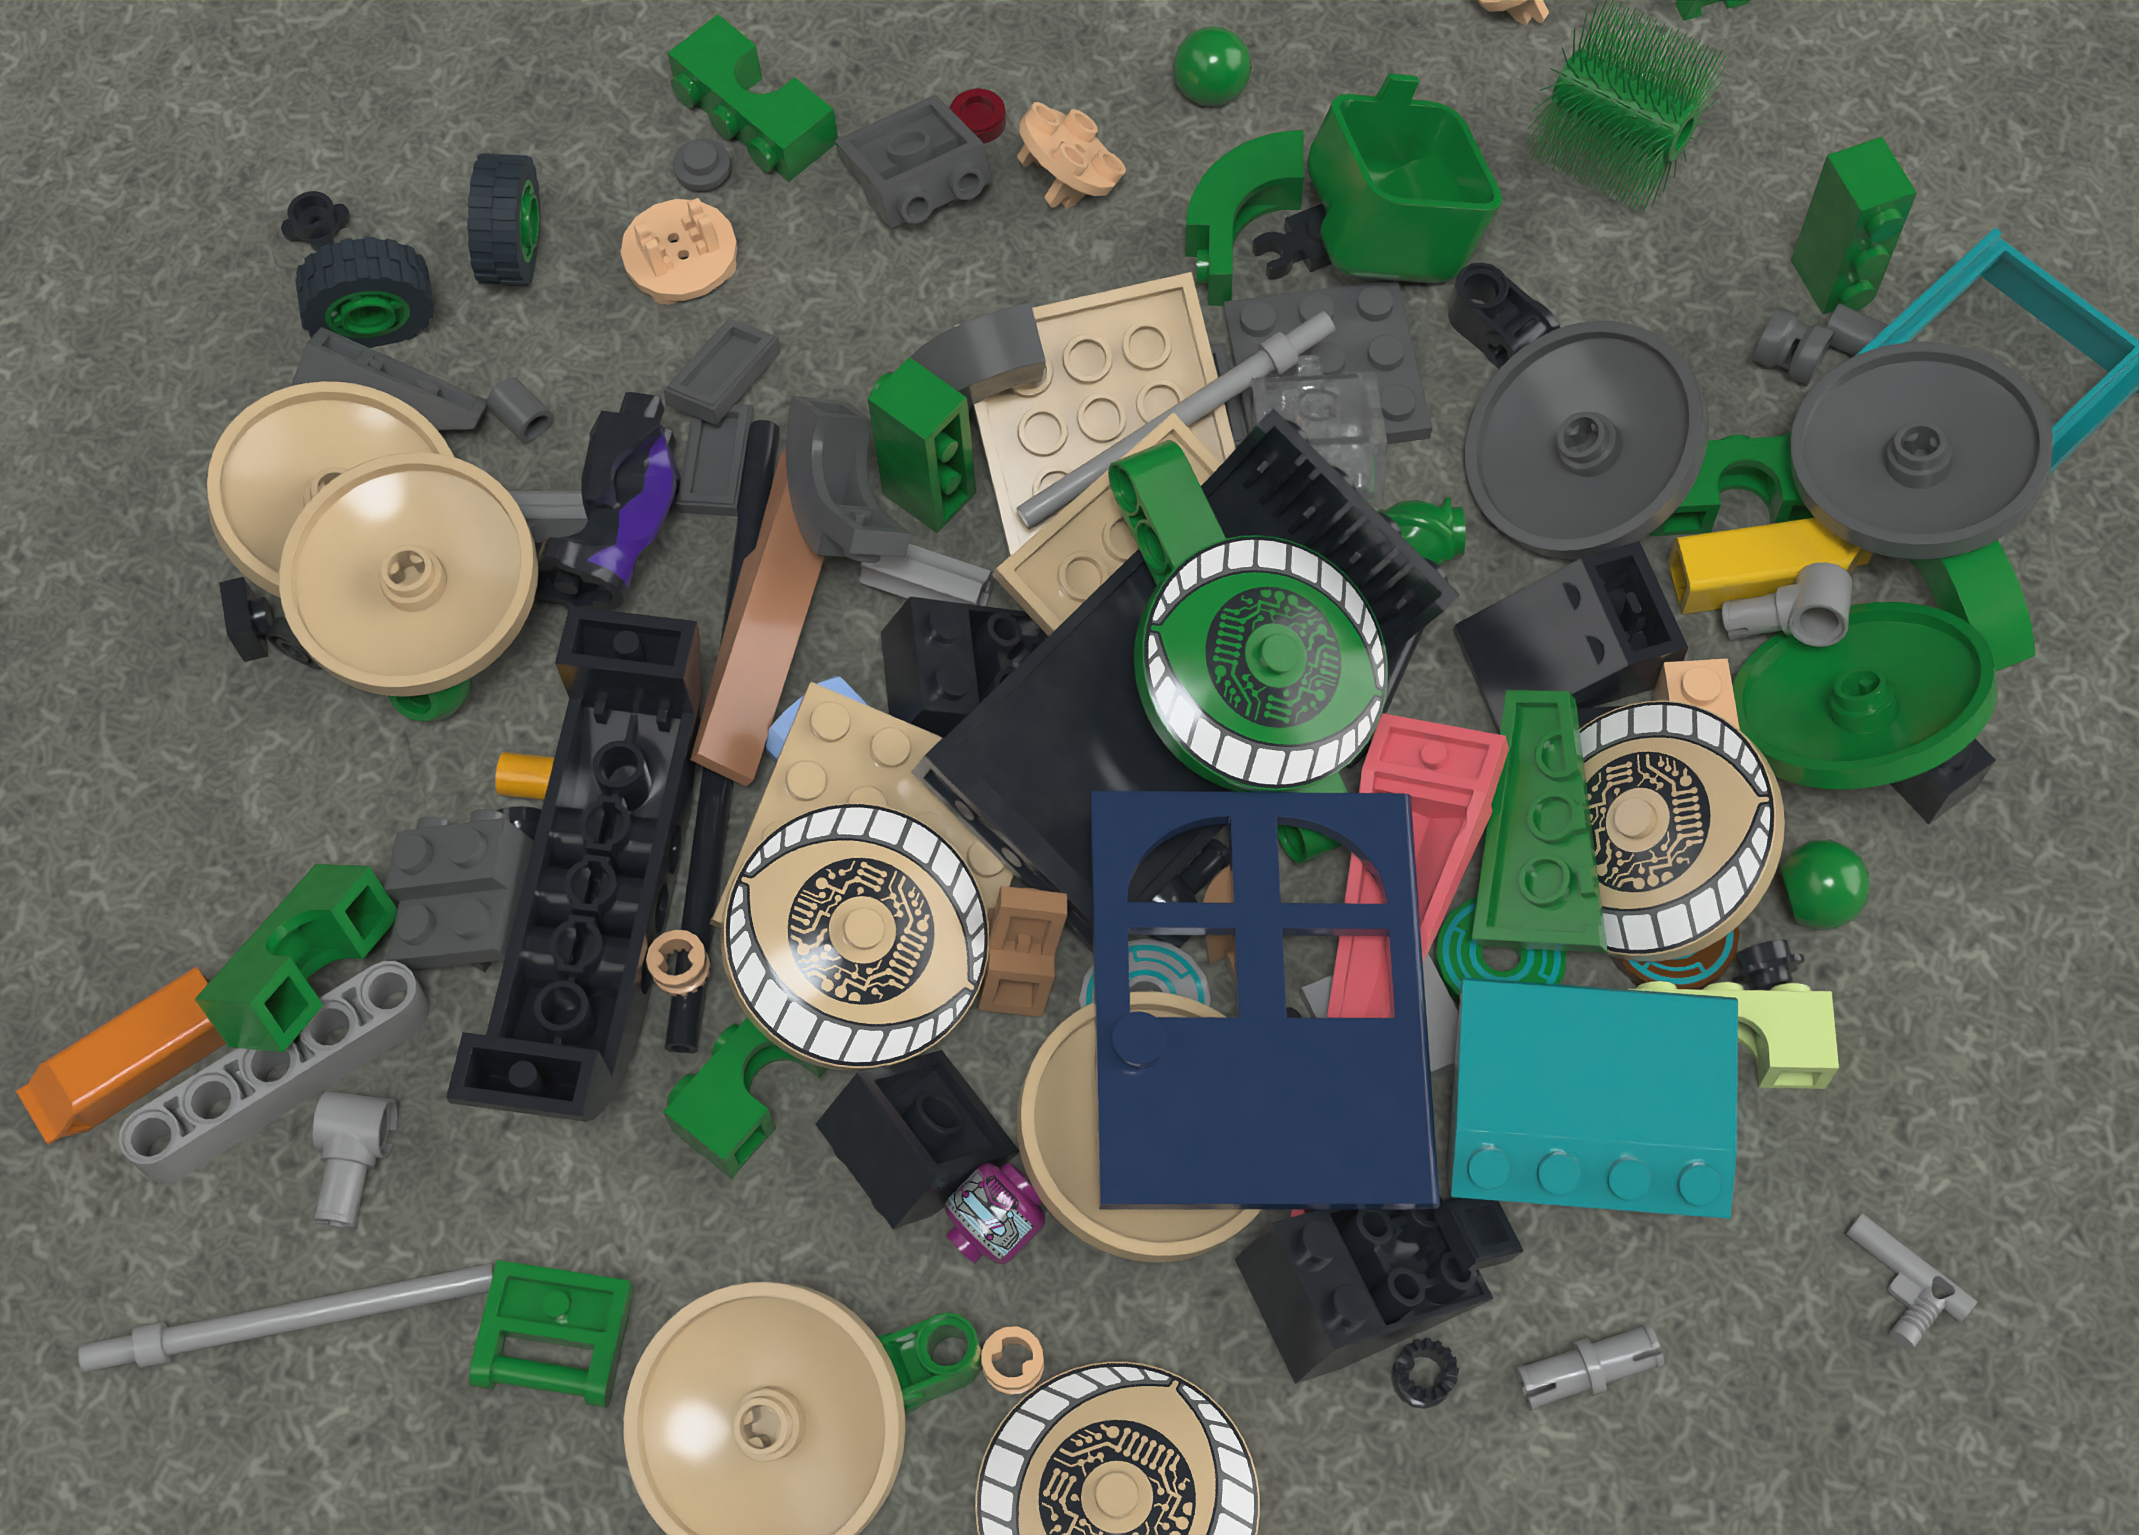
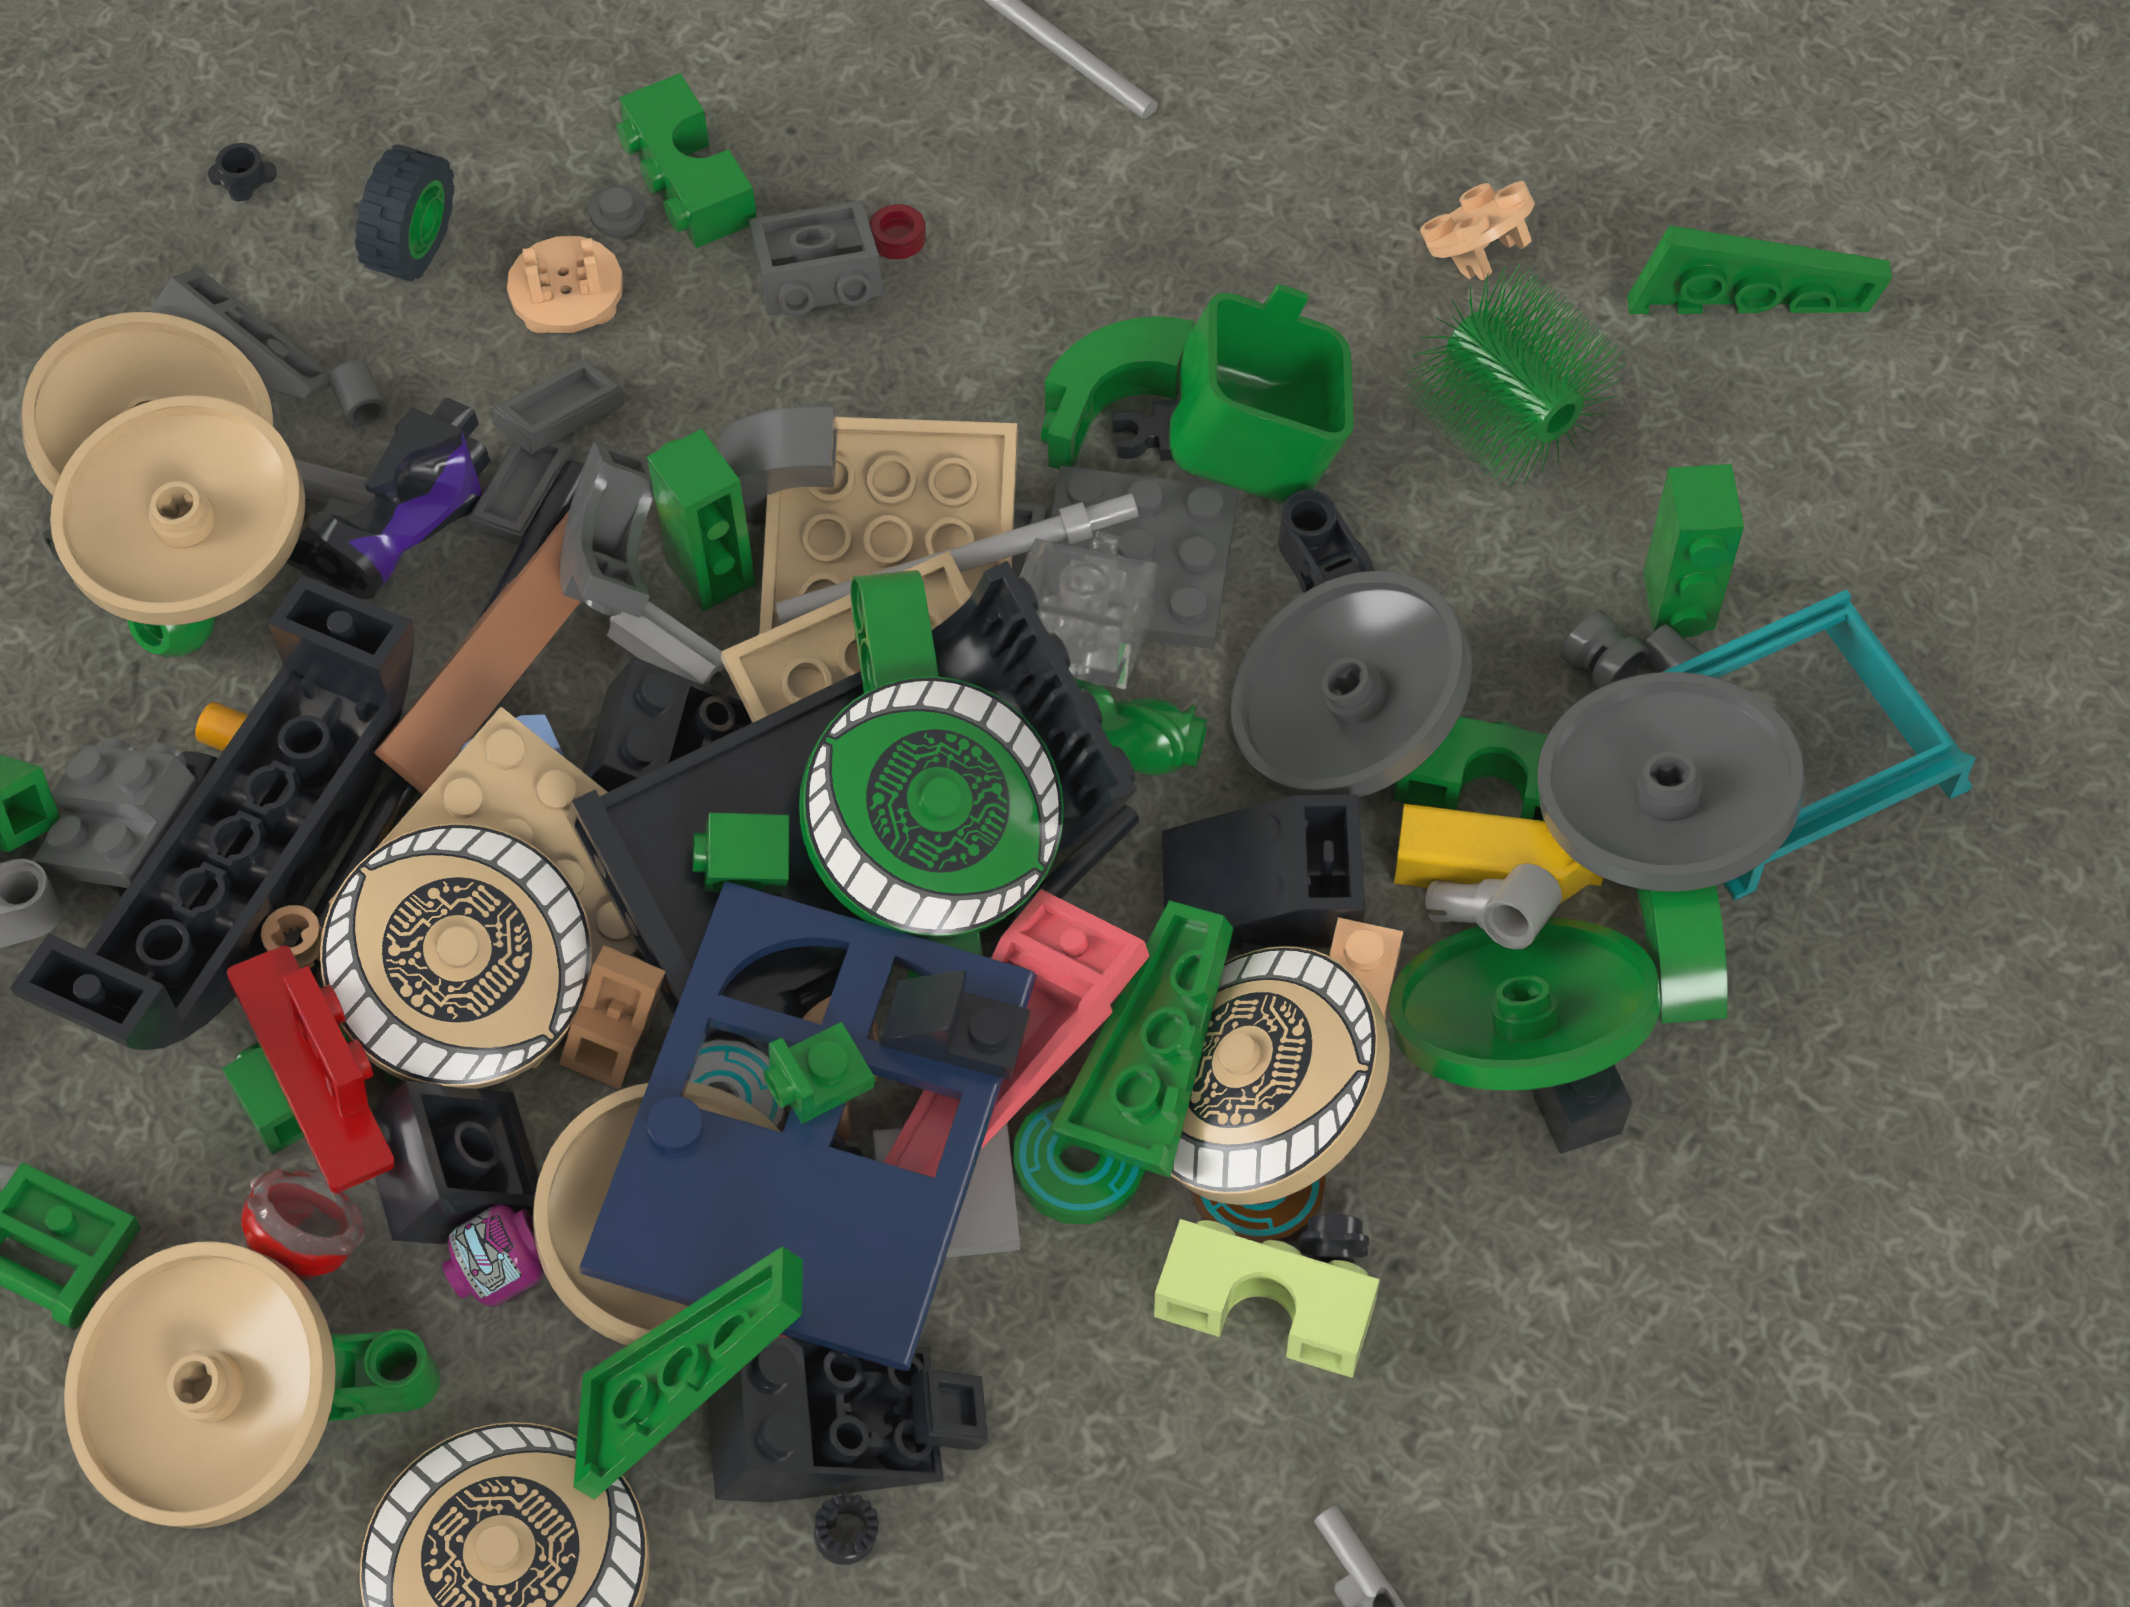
camera: 15 degrees right, 5 degrees down
(245, 618) = (28, 516): black plate -> none
(365, 291) = (252, 246): black wheel -> none
(759, 1080) = (314, 1065): none -> red bracket
(800, 1237) = (301, 1222): none -> clear hair
(1031, 1369) = (447, 1383): light nougat bush -> none
(1069, 152) = (963, 286): light nougat plate -> none
(1095, 757) = (743, 851): none -> green brick
(1212, 66) = (1137, 240): green piece -> none
(1227, 1273) = (677, 1366): none -> green wing
(1254, 950) = (817, 1072): none -> green bracket
(1360, 867) = (946, 1024): none -> black slope
(1590, 1366) = (1006, 1570): light grey pin -> none
(1594, 1098) = (1100, 1311): teal slope -> none
(1825, 884) = (1420, 1177): green piece -> none

